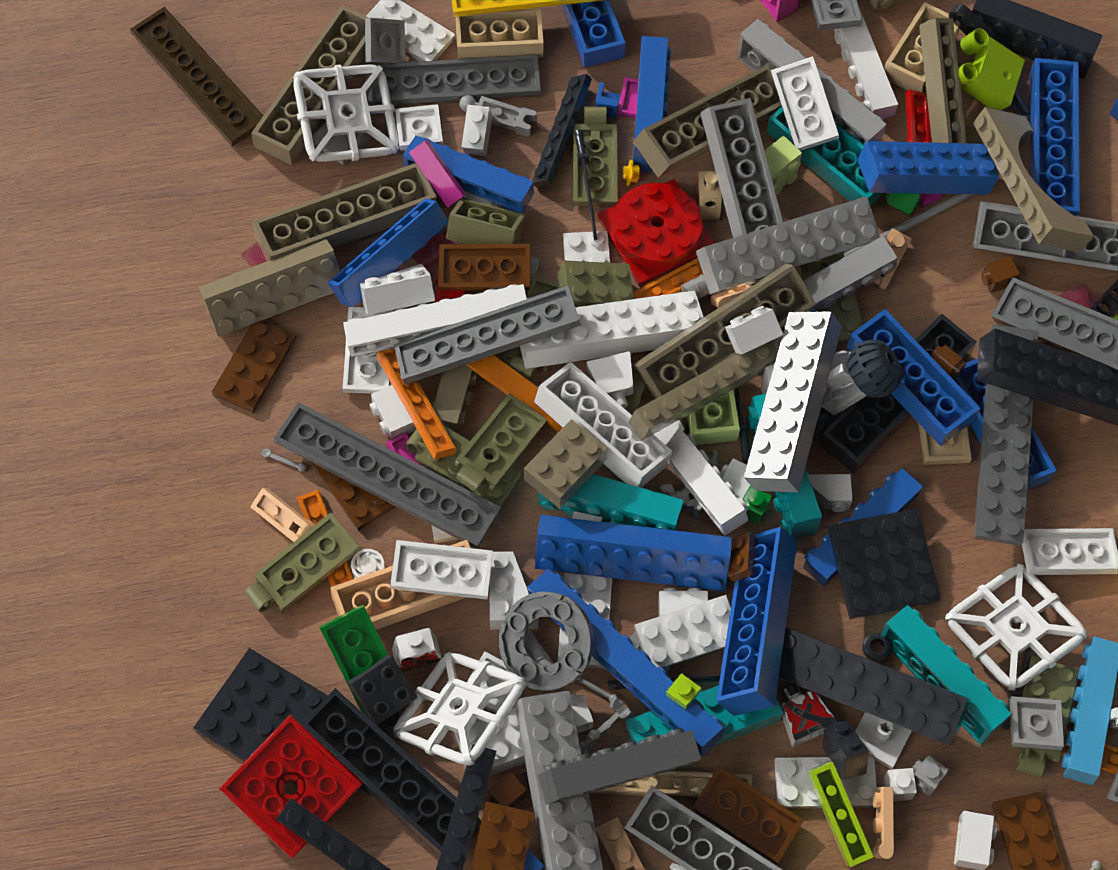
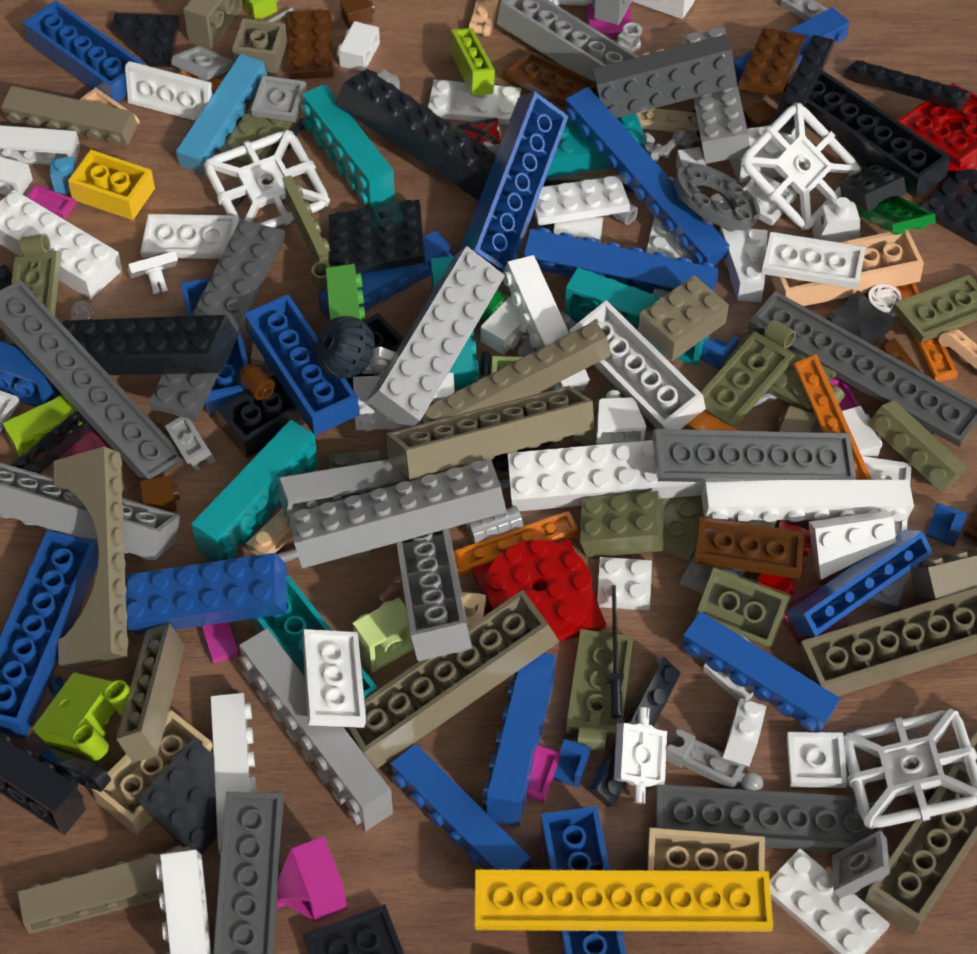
camera: 170 degrees left, 10 degrees down
(310, 337) = (946, 524): none -> blue panel
(337, 397) = (917, 445): none -> olive brick
(388, 528) = (861, 318): none -> black brick
(437, 173) = (799, 665): dark pink tile -> none
(523, 493) = (717, 351): none -> blue panel
(556, 100) = (640, 755): none -> white plate
(631, 173) = (561, 665): yellow plate -> none
(683, 691) = (596, 128): lime plate -> none
(686, 52) = (457, 813): none -> blue brick
(741, 557) = (514, 242): reddish brown plate -> none
(753, 330) = (462, 407): white brick -> none
(832, 491) = (404, 309): white slope -> none
(845, 749) = (454, 101): black brick -> none
(878, 657) = (402, 182): black piece -> none
(883, 823) = (433, 60): light nougat plate -> none
(890, 454) = (344, 292): none -> bright green brick
(893, 26) = (185, 797): none -> black plate
(902, 782) = (412, 83): white brick -> none
(917, 117) = (191, 682): red plate -> none
(919, 266) = (253, 493): none -> teal brick
(954, 553) = (309, 229): none -> olive hinge
(982, 317) = (189, 442): none -> light grey hinge
(1084, 816) = (261, 41): none -> dark tan brick
(1092, 499) = (153, 268): none -> white tile

